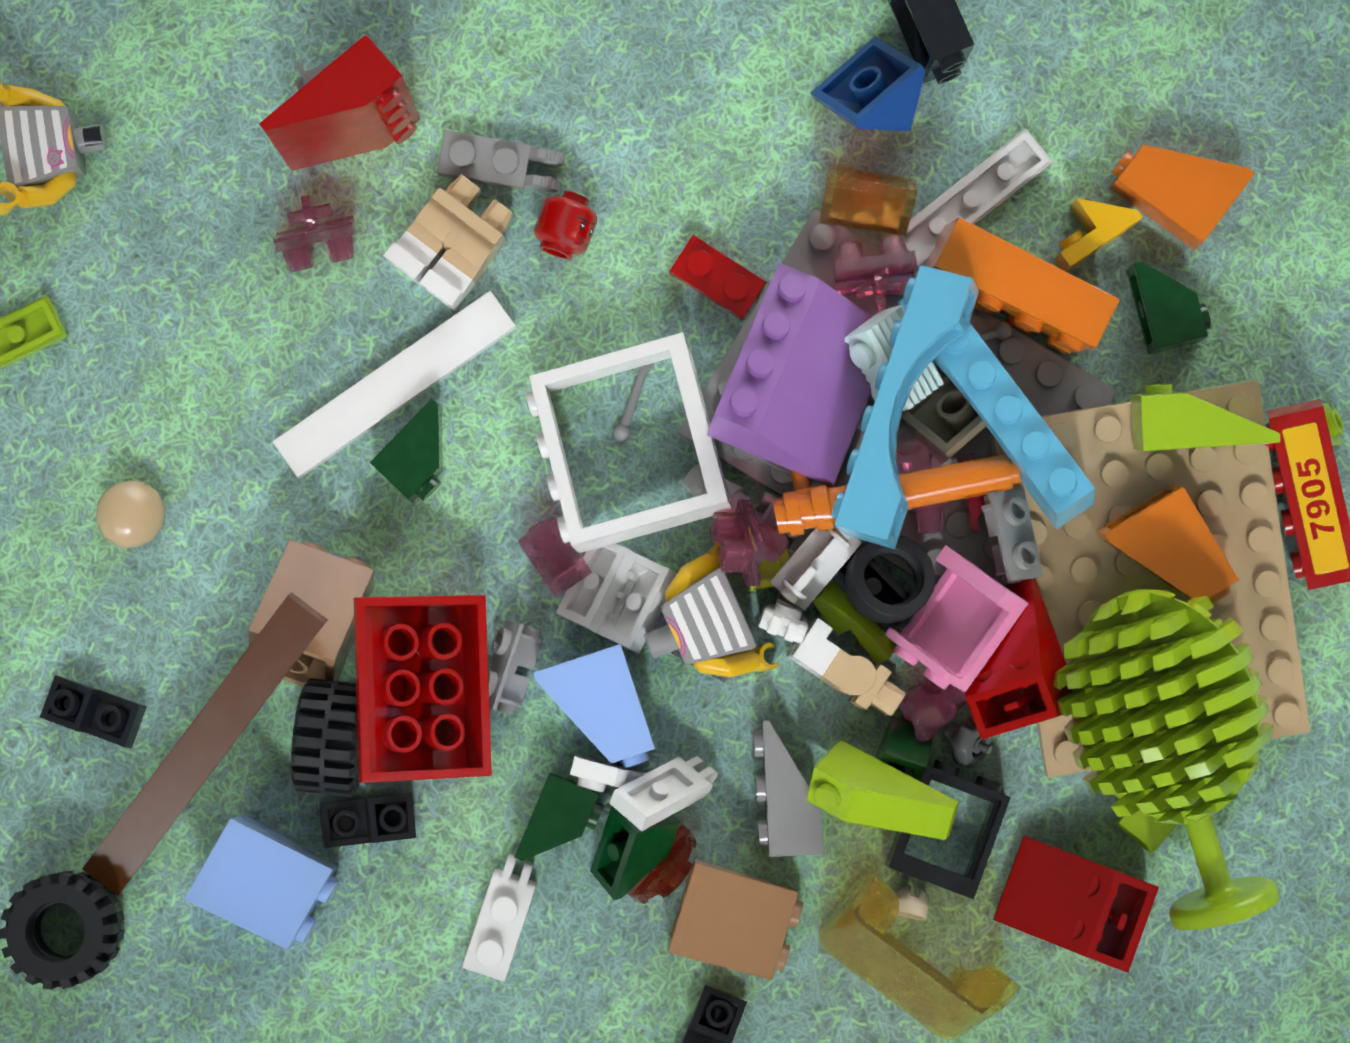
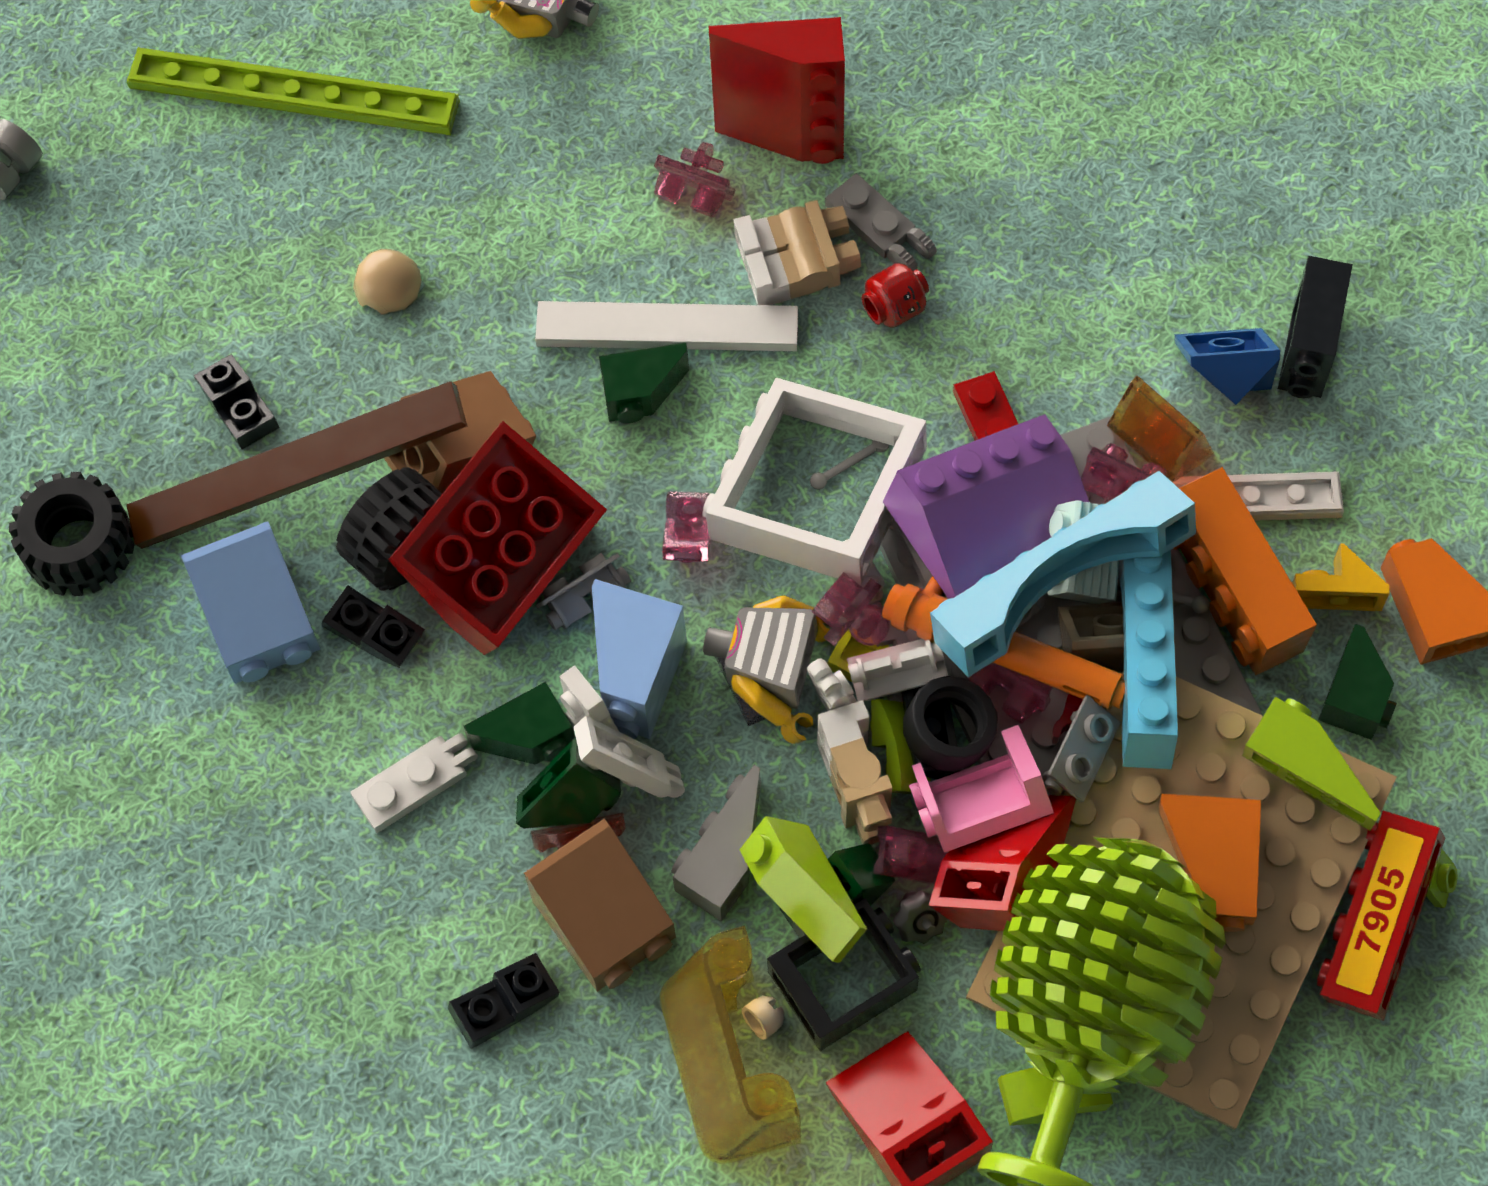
camera: 45 degrees right, 20 degrees down
(618, 596) = (713, 591): white slope -> none

